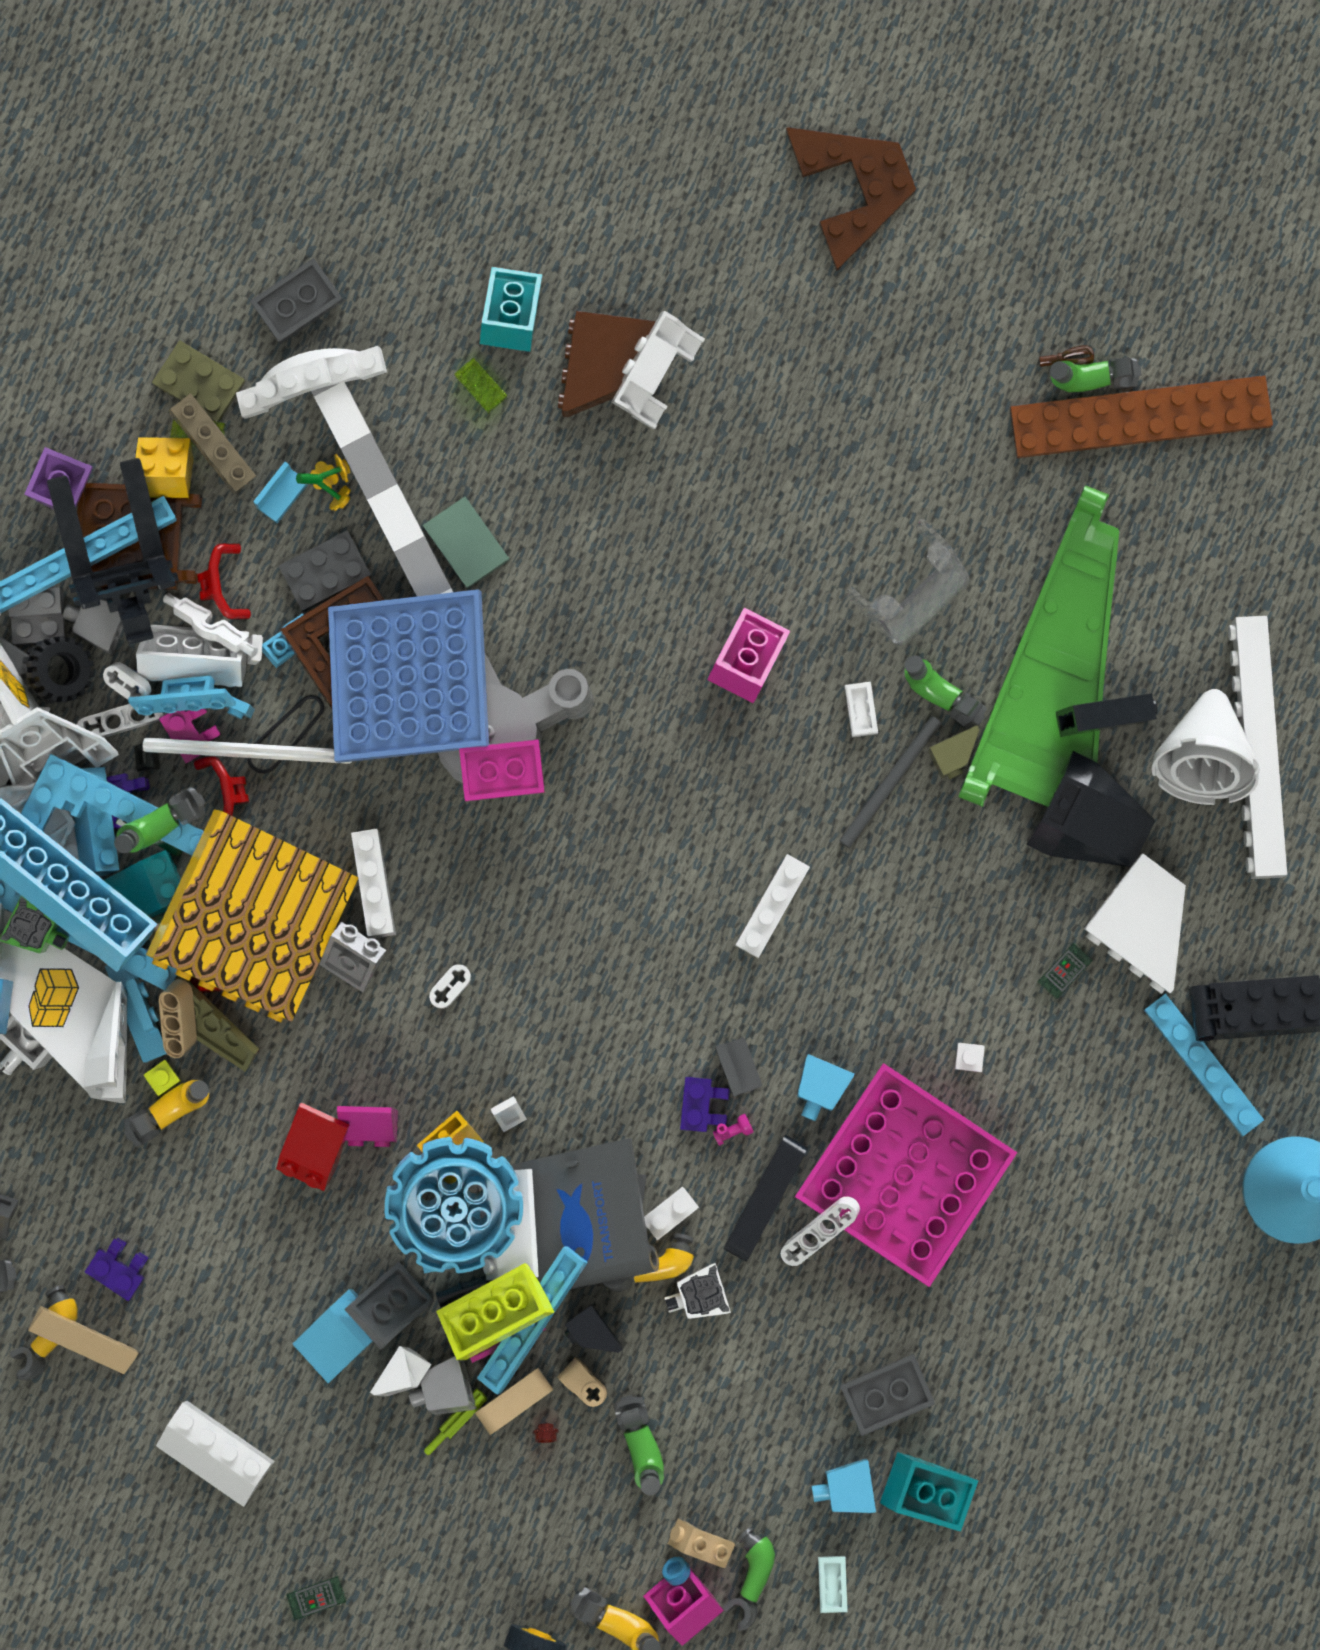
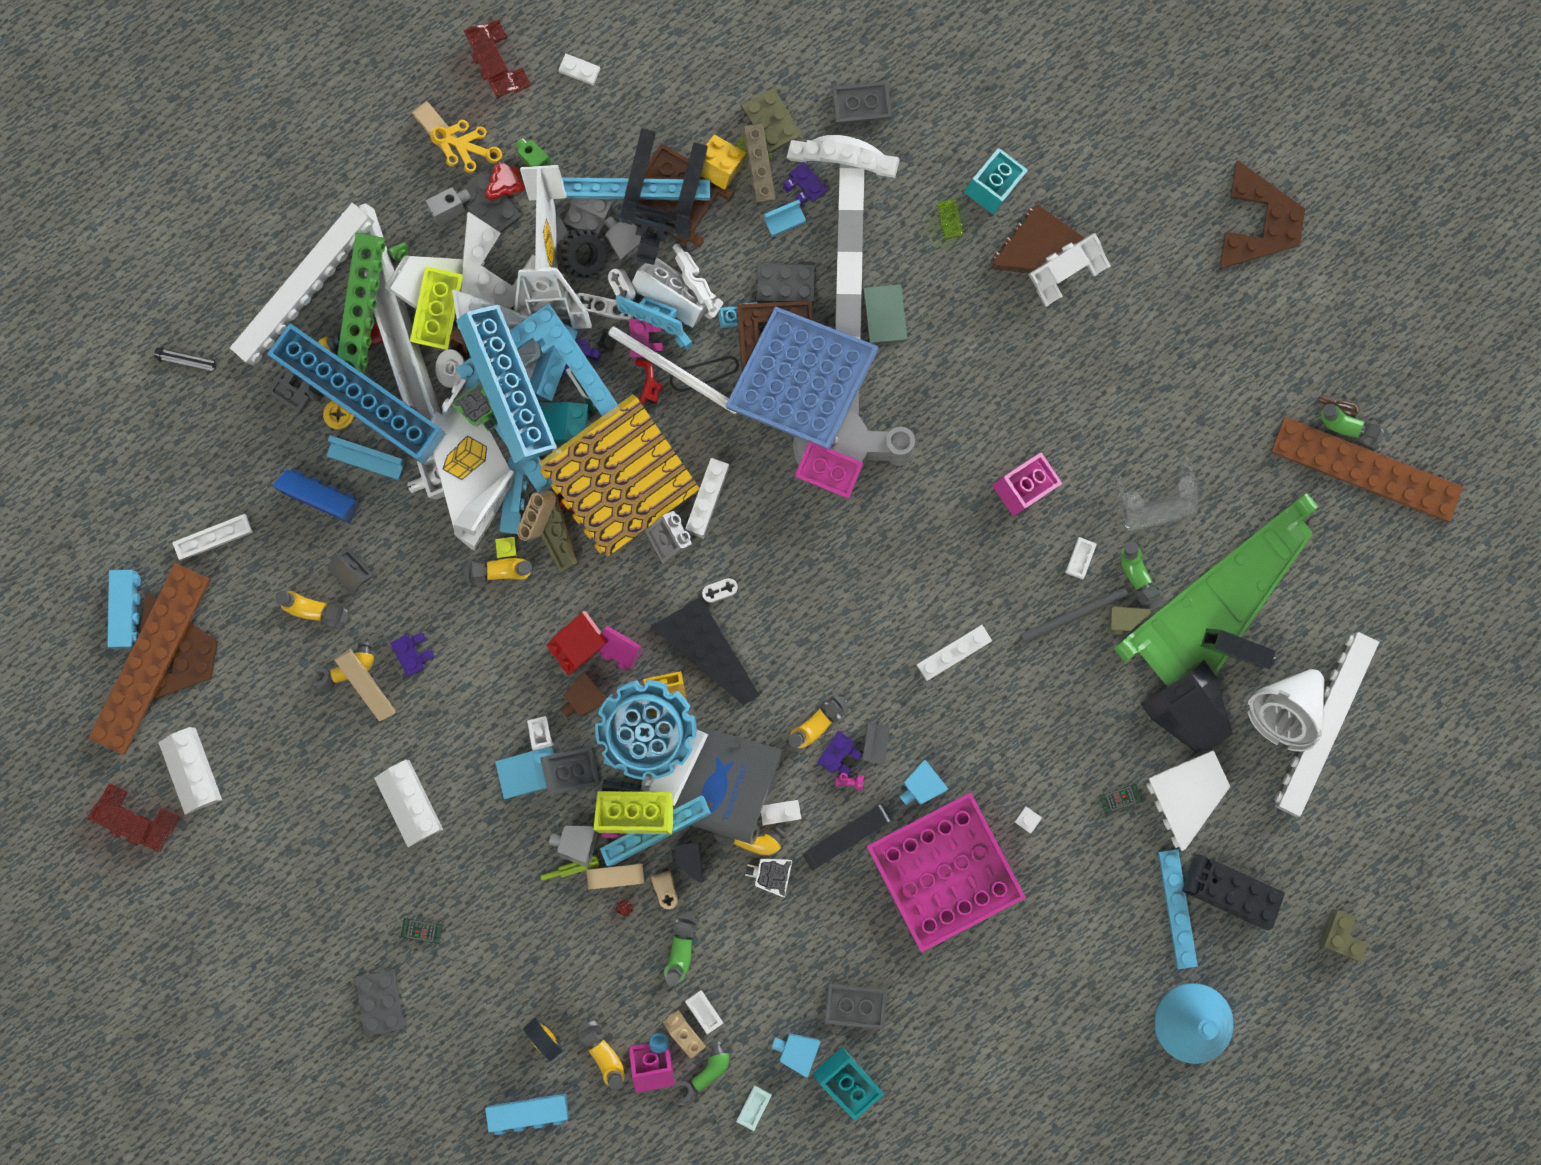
camera: 25 degrees right, 0 degrees up
(56, 465) = (651, 122): medium lavender slope -> none
(156, 825) = (594, 383): piece -> none
(211, 585) = (708, 253): red piece -> none
(285, 433) = (808, 183): none -> dark purple plate
(325, 476) = (819, 223): yellow plant -> none
(327, 1280) = (539, 733): none -> white slope
(355, 1207) = (582, 697): none -> reddish brown torso
(402, 1373) = (553, 818): white slope -> none
(460, 1059) = (701, 641): none -> black wing
(508, 1114) = (712, 691): white plate -> none
(656, 1082) = (816, 725): none -> piece
(710, 1503) = (704, 1012): none -> white plate
(820, 1231) = (871, 880): white beam -> none

